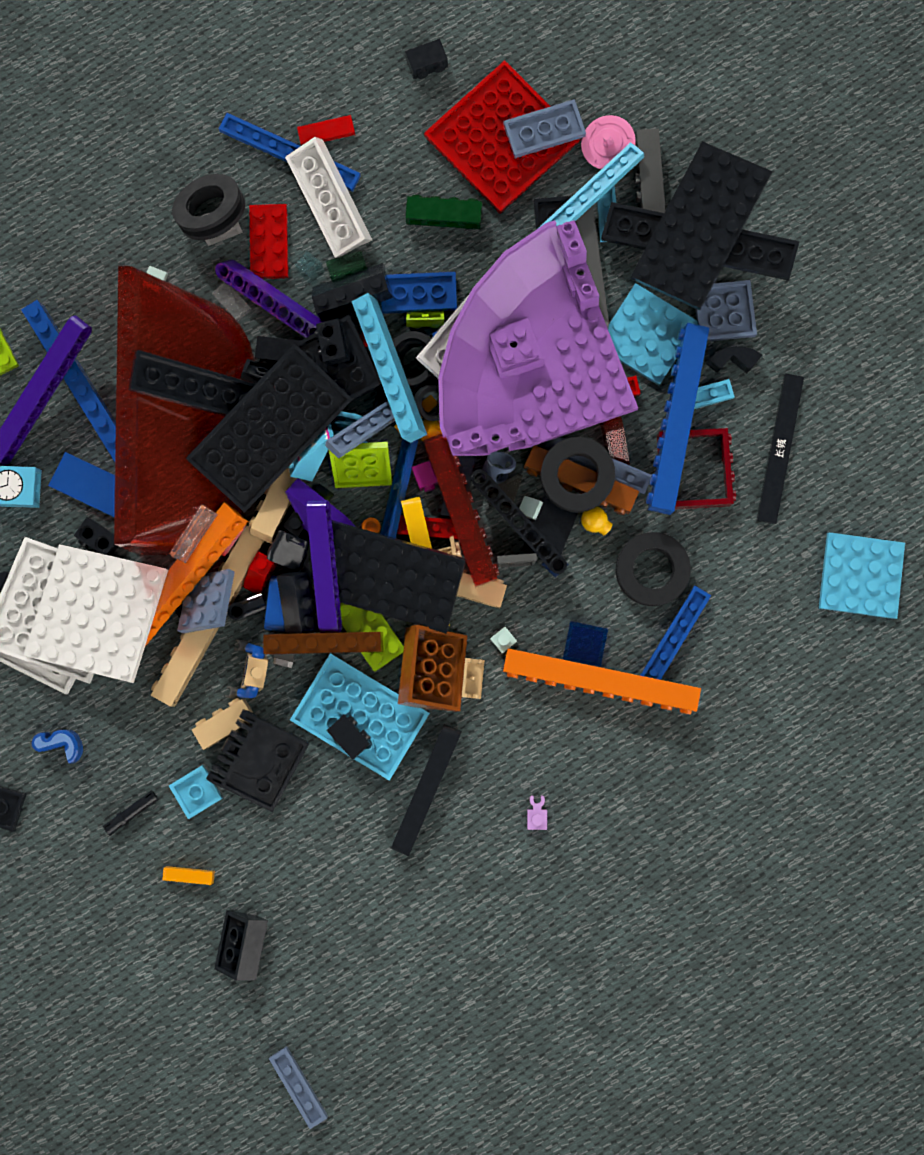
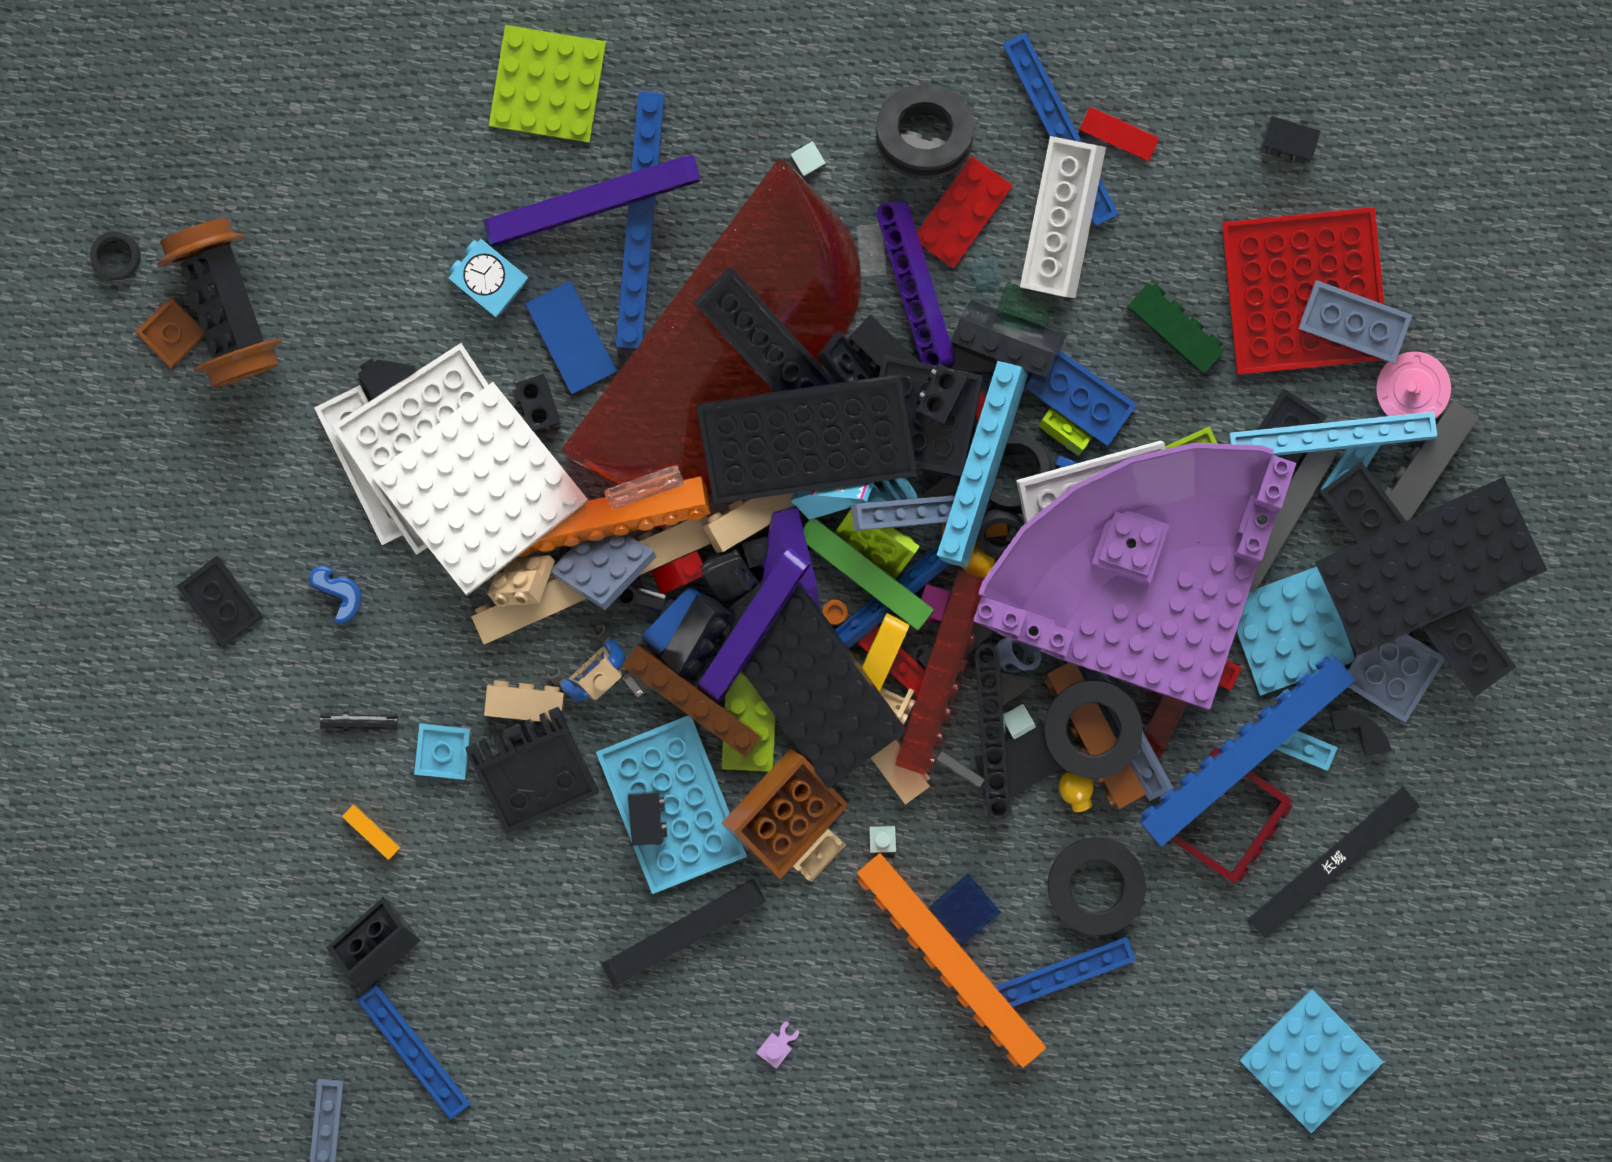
camera: 35 degrees right, 5 degrees up
(164, 650) = (521, 581): none -> tan plate
(316, 993) = (413, 1051): none -> blue tile
(371, 487) = (866, 573): none -> bright green tile

